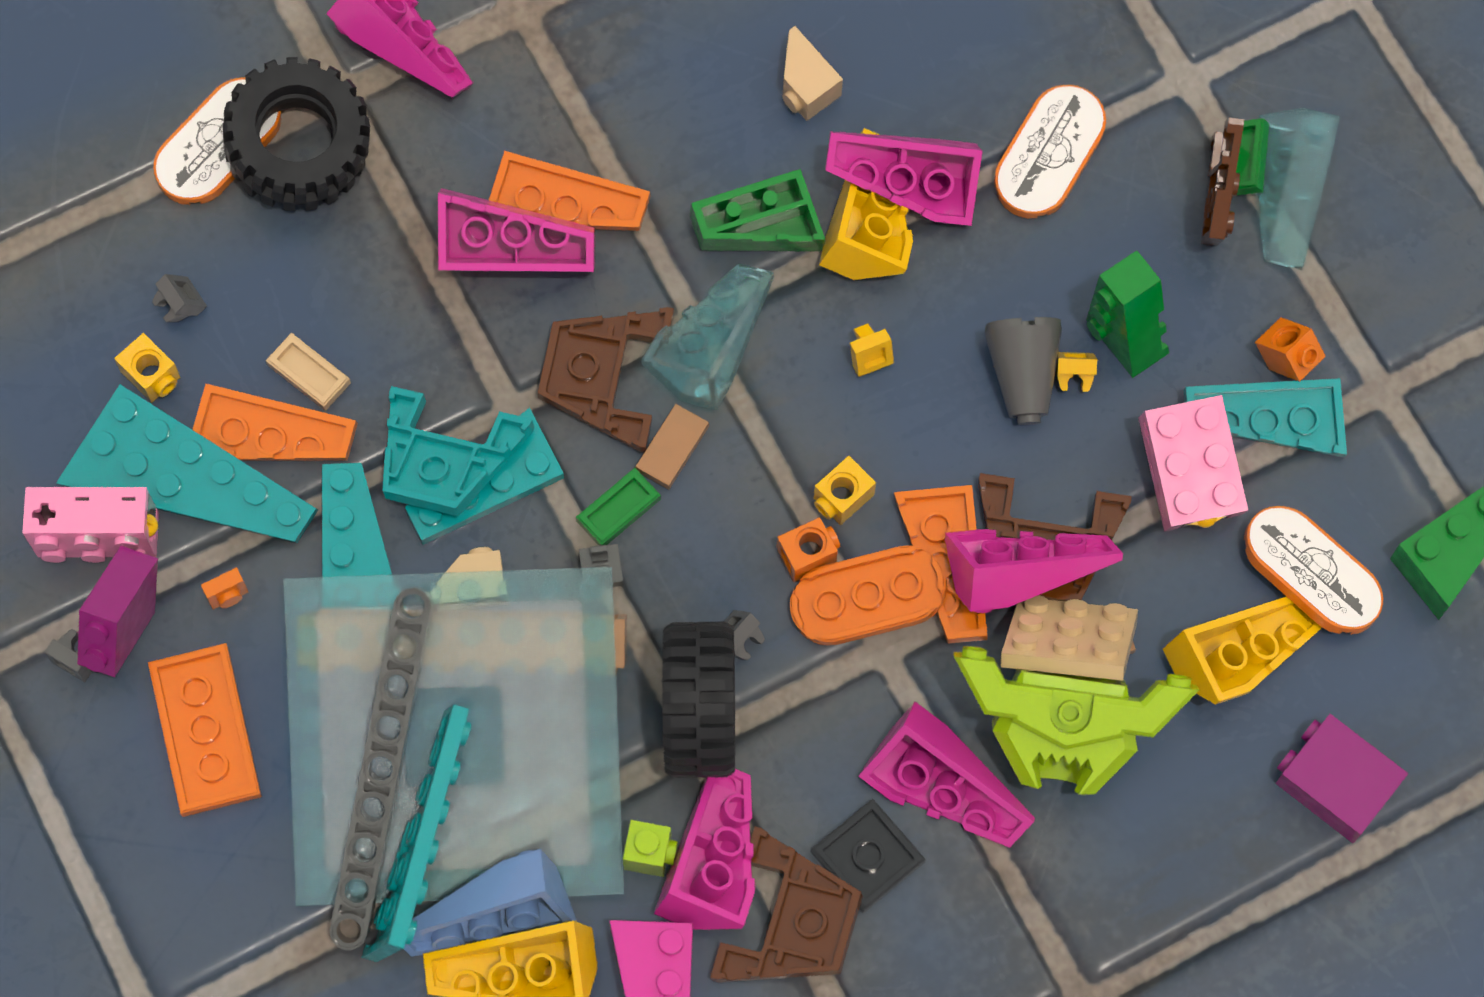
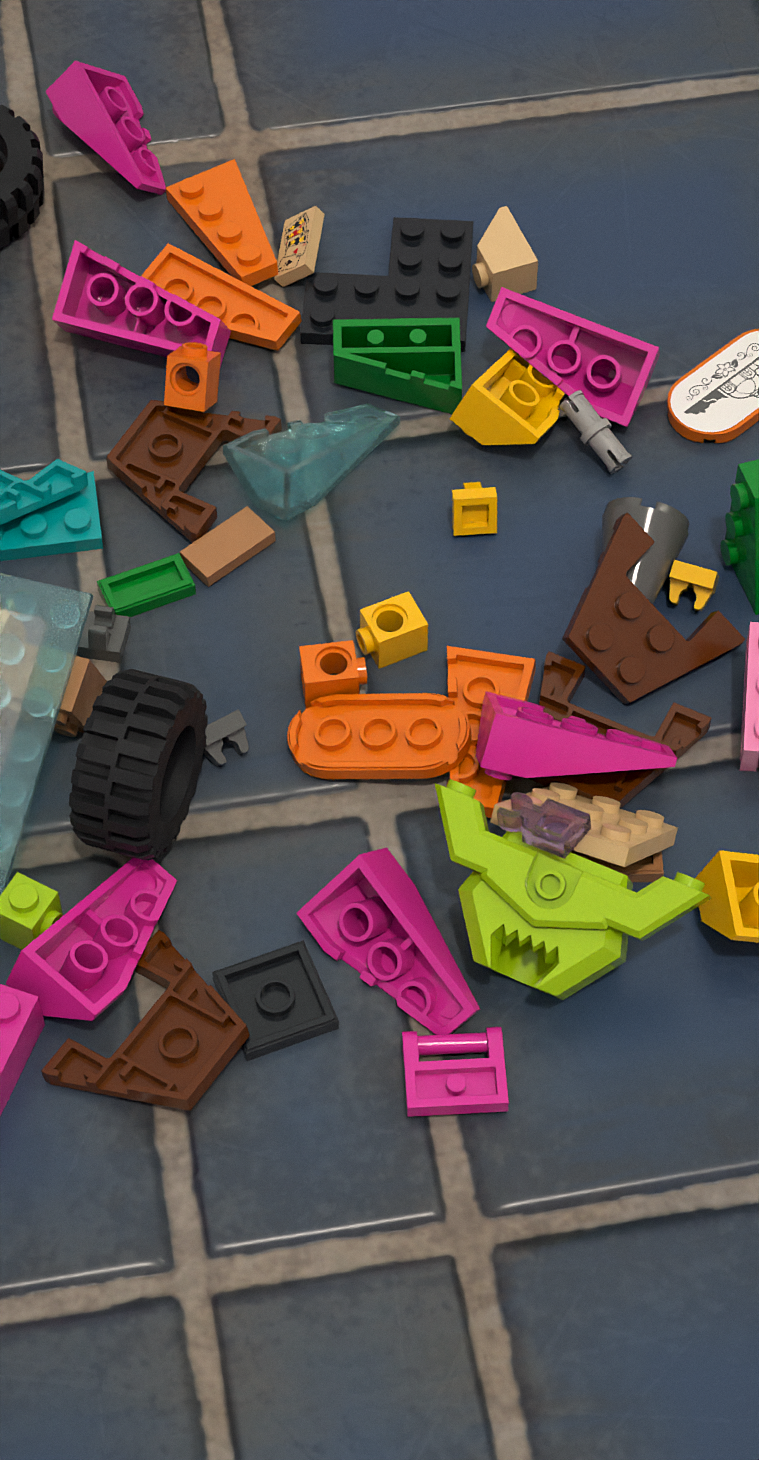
camera: 20 degrees right, 15 degrees down
(539, 102) = (226, 221): none -> orange wing
(586, 308) = (183, 392): none -> orange brick
(620, 116) = (299, 246): none -> tan tile
(741, 144) = (424, 281): none -> black plate
(948, 241) = (595, 431): none -> light grey pin
(1033, 886) = (459, 1084): none -> dark pink plate
(1041, 442) = (625, 634): none -> reddish brown wing
(1057, 667) = (547, 827): none -> plate

